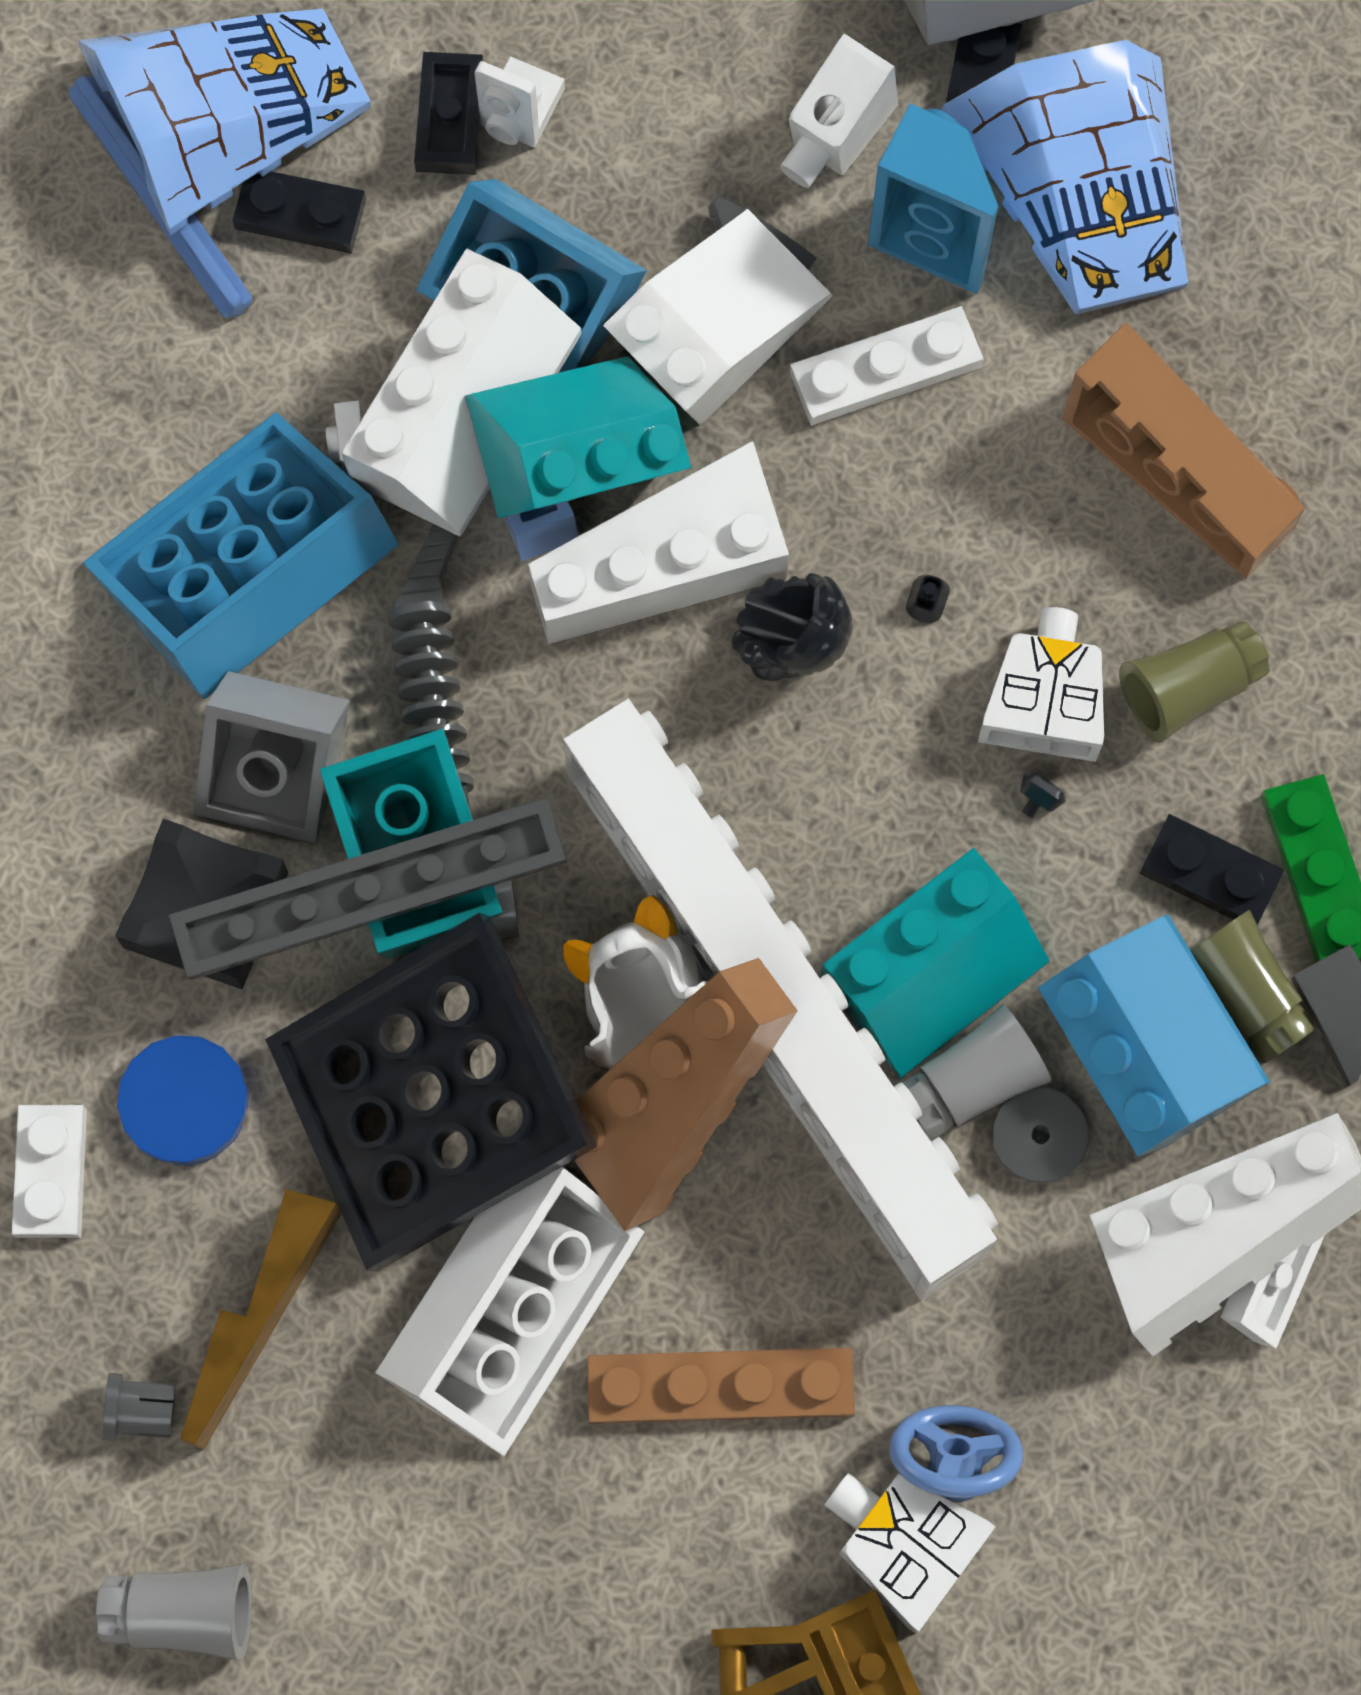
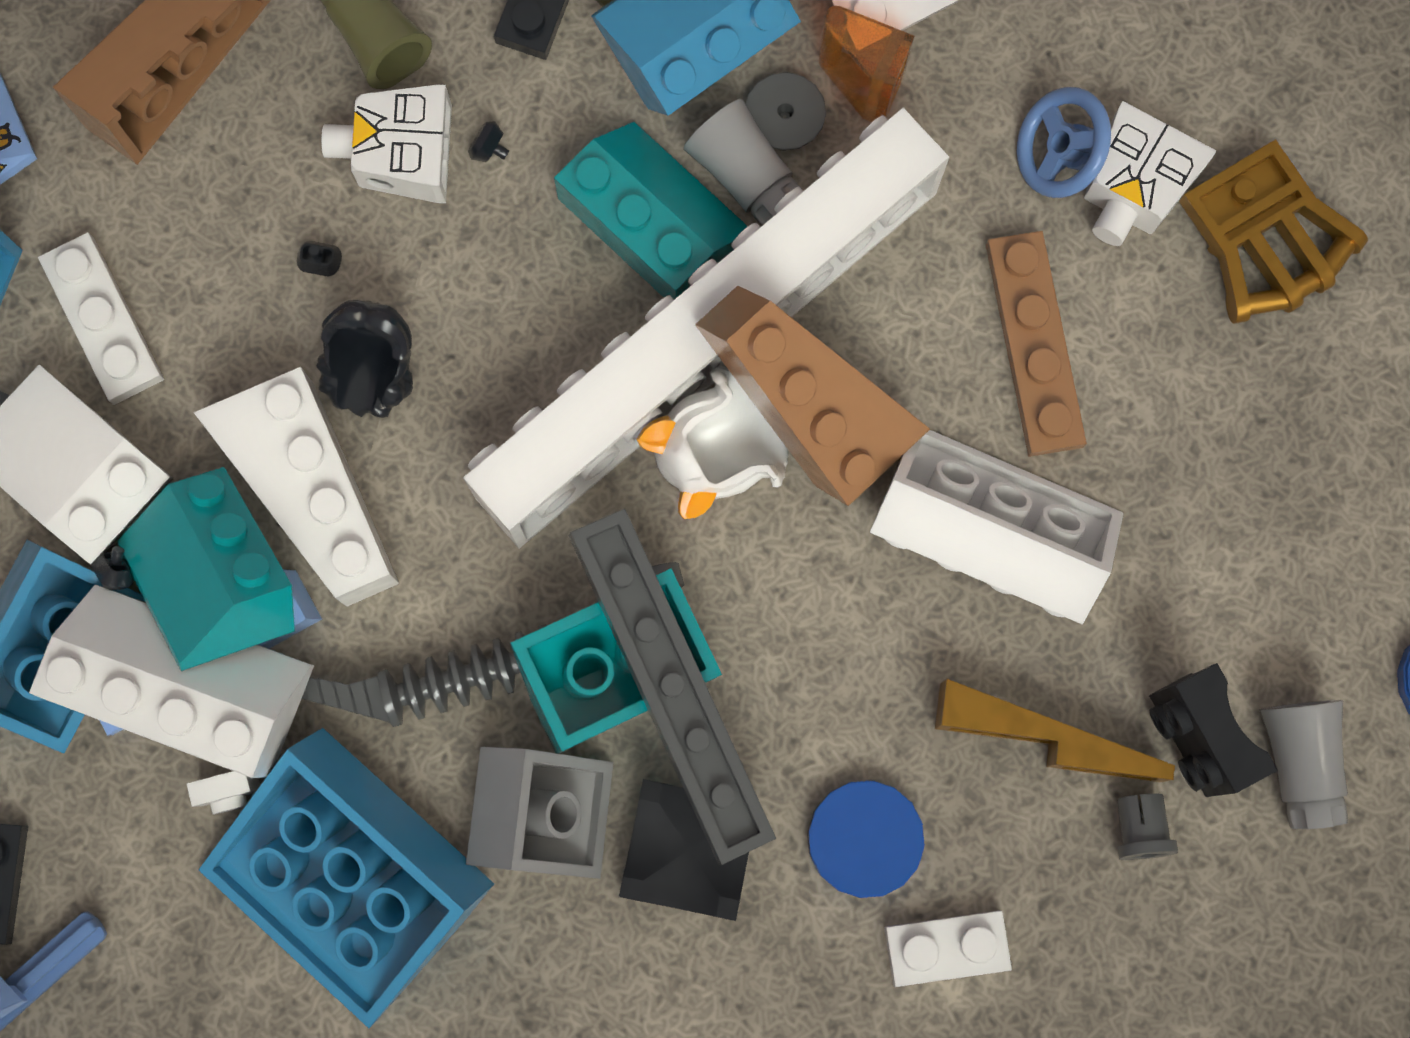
camera: 100 degrees left, 5 degrees up
(199, 1493) = (1212, 744): none -> black brick
(524, 1071) = (847, 572): black piece -> none
(593, 347) = (113, 570): none -> black rock
(1072, 1226) = (874, 61): none -> clear orange tile

